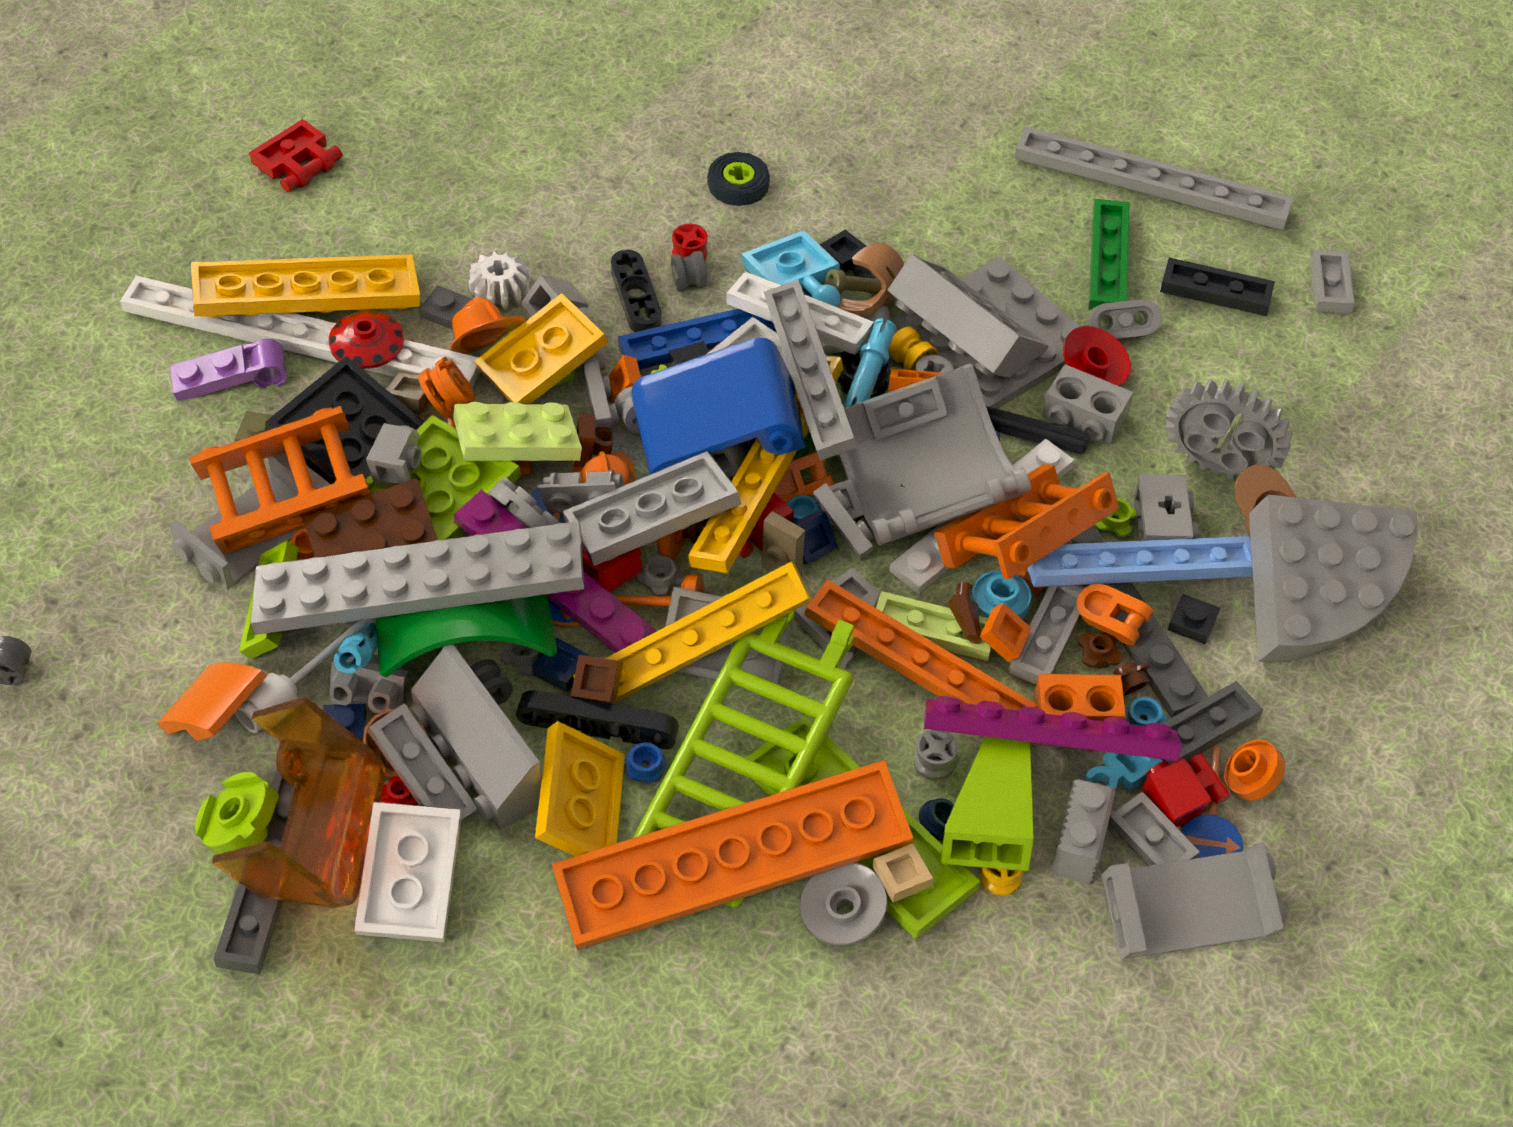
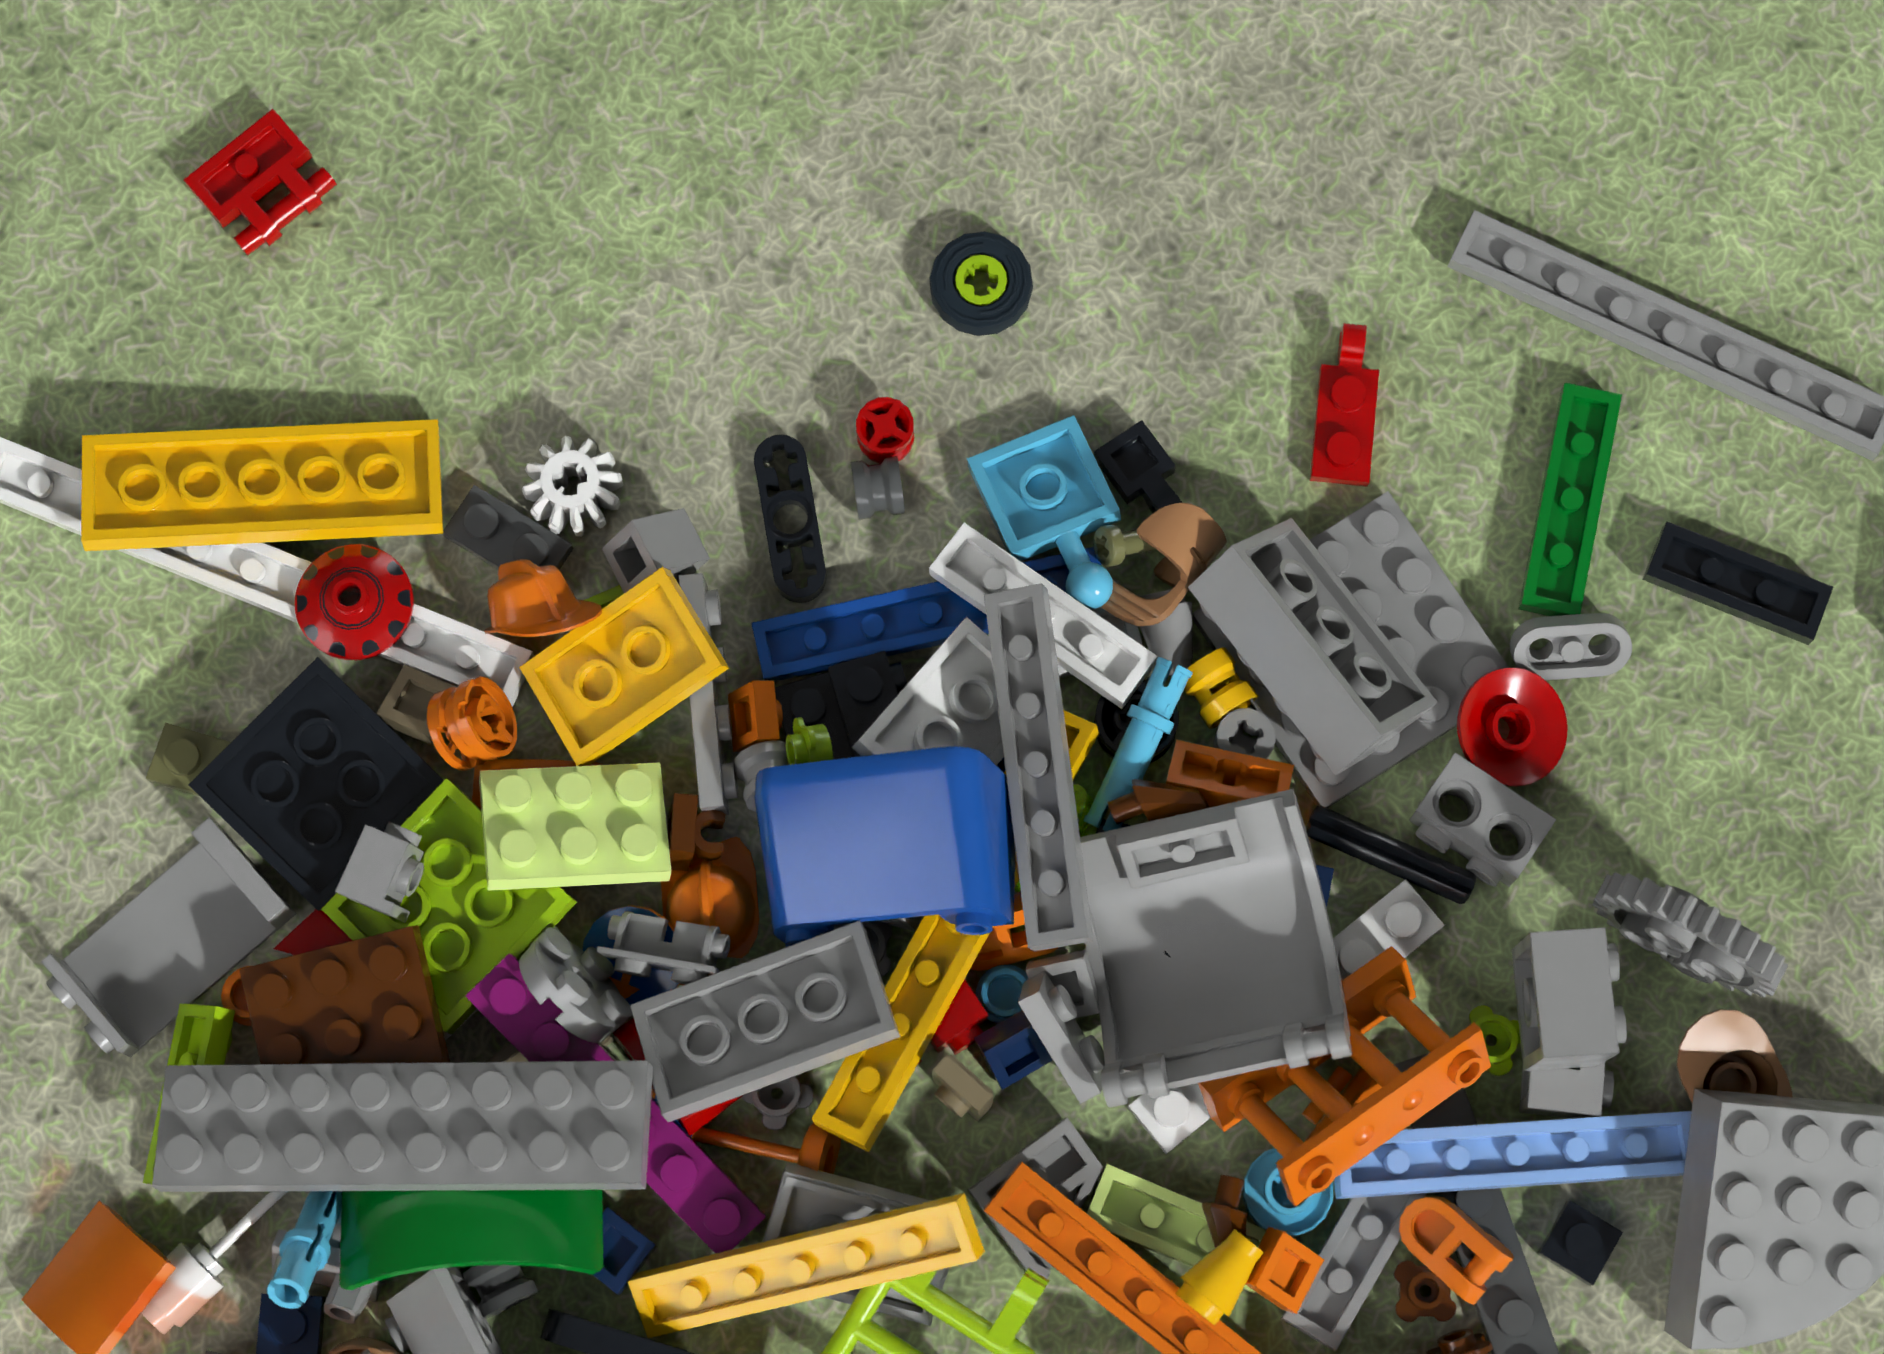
camera: 10 degrees right, 25 degrees up
(256, 362) = (140, 638): medium lavender plate -> none
(276, 517) = (193, 955): orange fence -> none
(597, 679) = (659, 1311): reddish brown plate -> none
(880, 385) = (1156, 801): none -> reddish brown bar
(963, 633) = (1219, 1277): none -> yellow cone
(966, 225) = (1345, 414): none -> red plate
(1159, 458) = (1567, 999): none -> light grey brick

